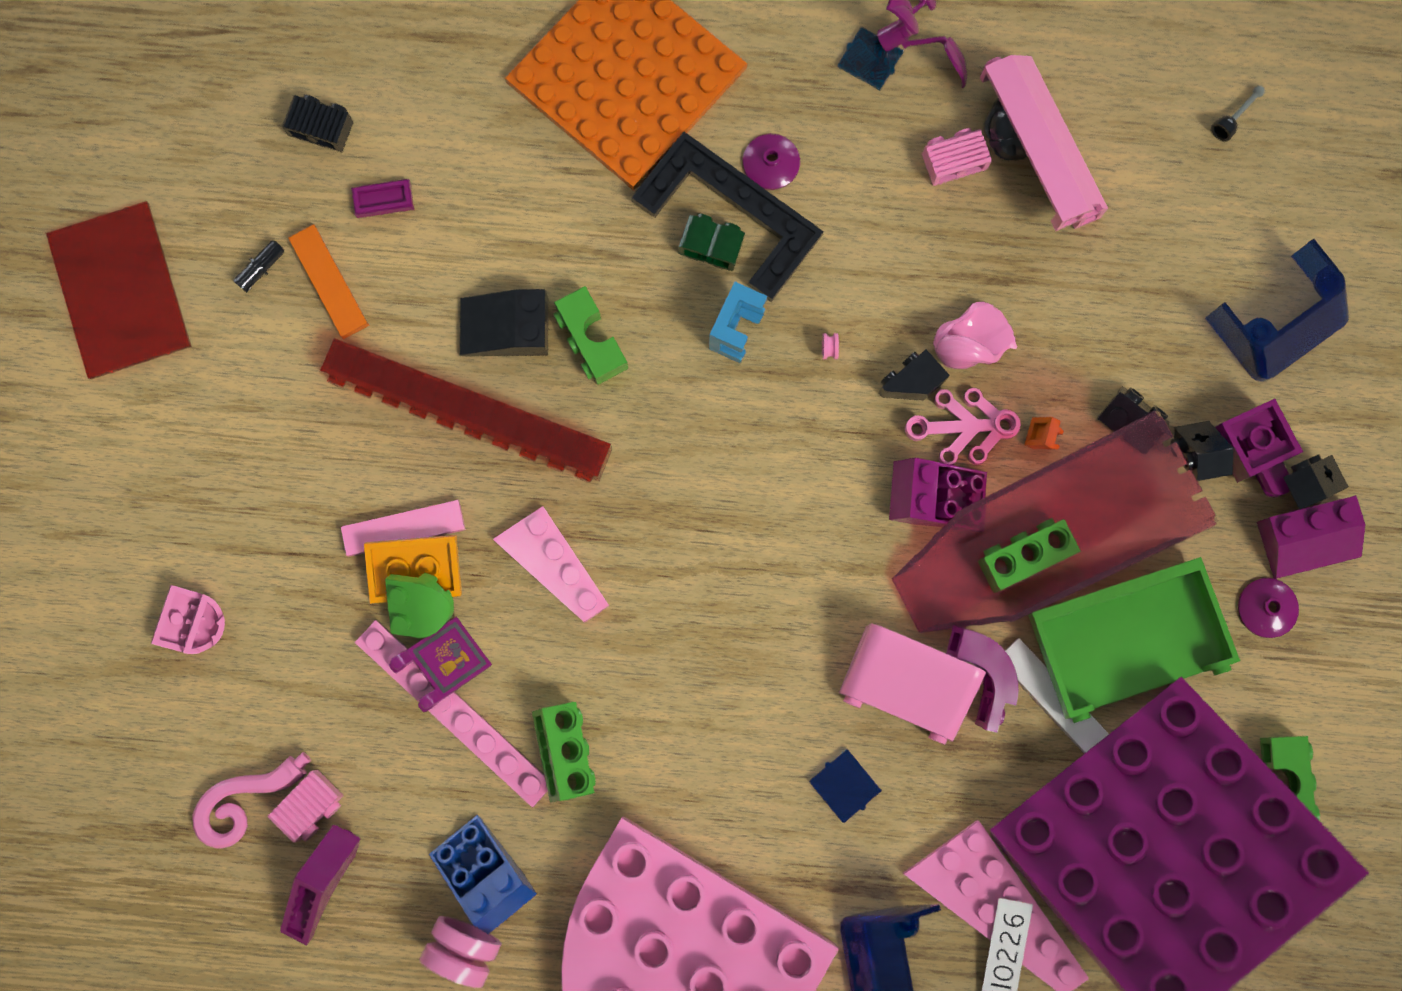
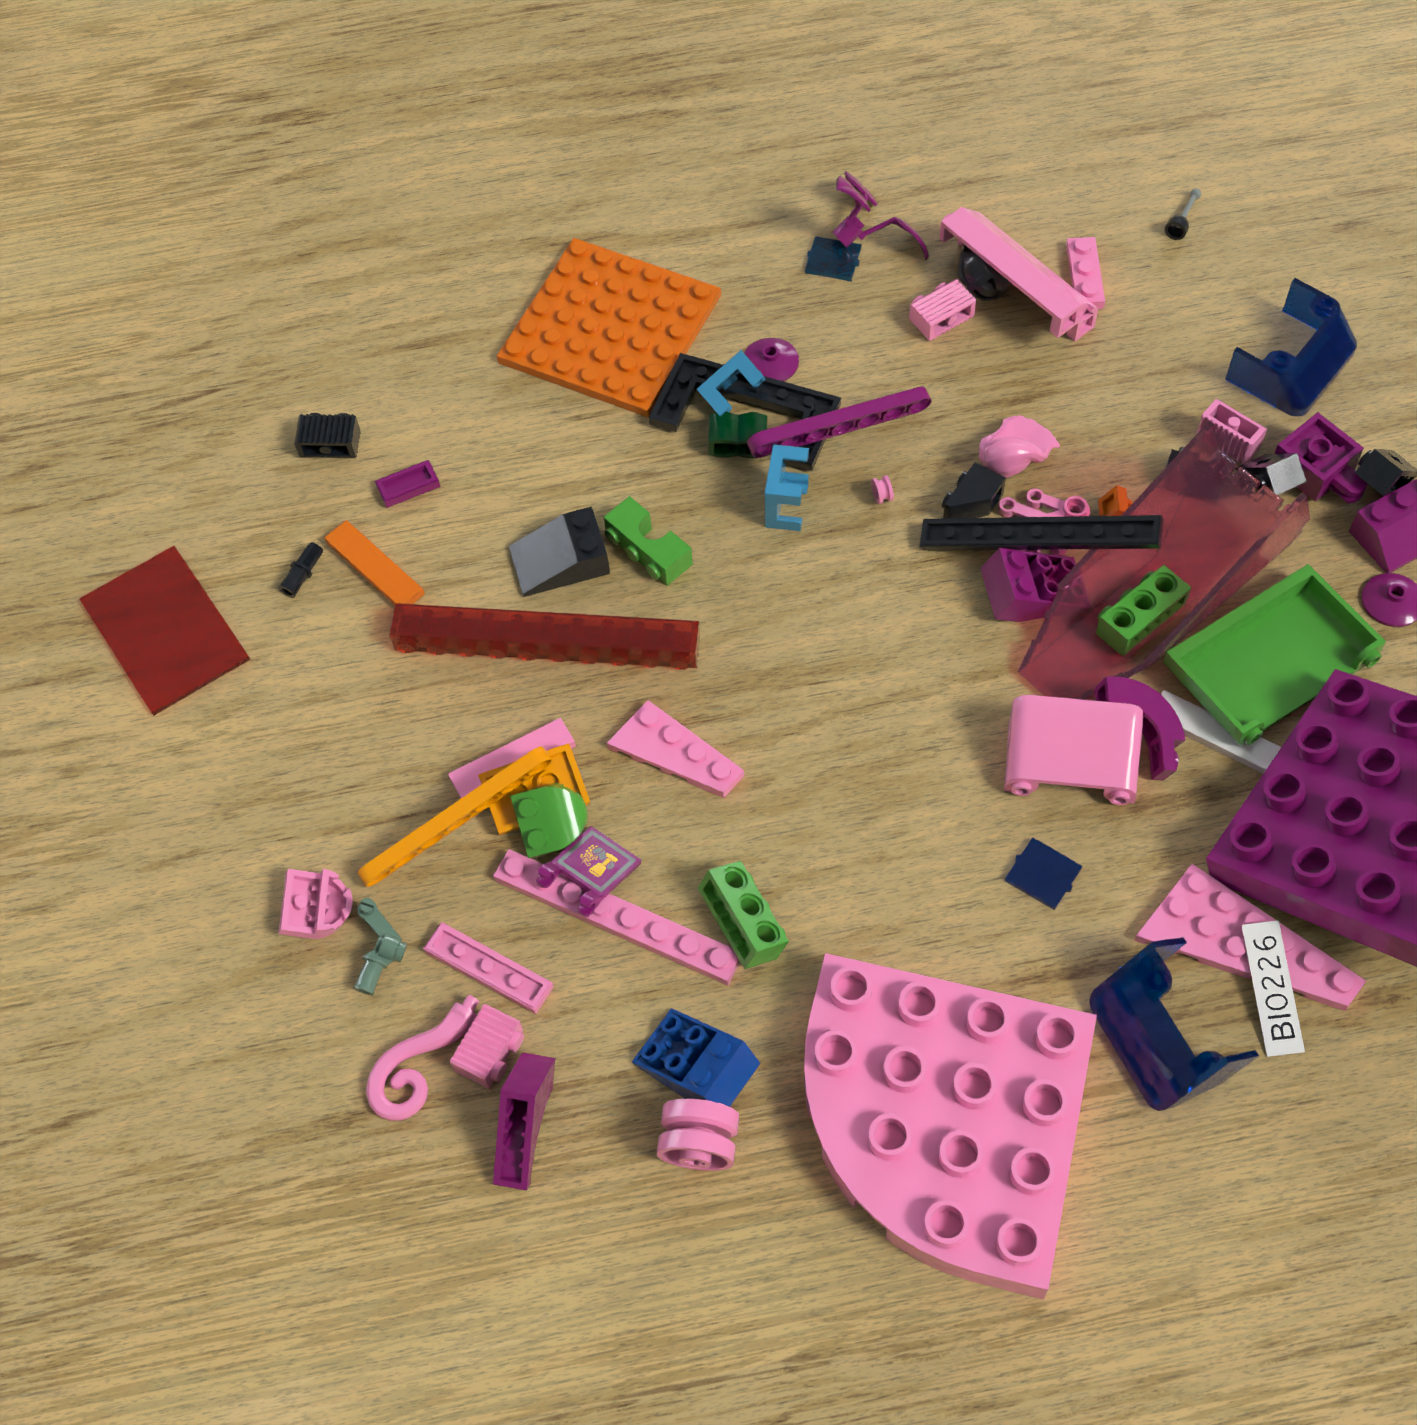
camera: 10 degrees left, 20 degrees down
(243, 686) = (387, 949): none -> sand green pin
(328, 728) = (488, 968): none -> bright pink tile
(332, 580) = (454, 816): none -> light orange beam
(699, 193) = (725, 378): none -> dark azure panel
(811, 263) = (840, 421): none -> magenta beam
(960, 456) = (1043, 533): none -> black tile
(1114, 152) = (1086, 269): none -> bright pink plate
(1185, 388) = (1236, 433): none -> bright pink brick

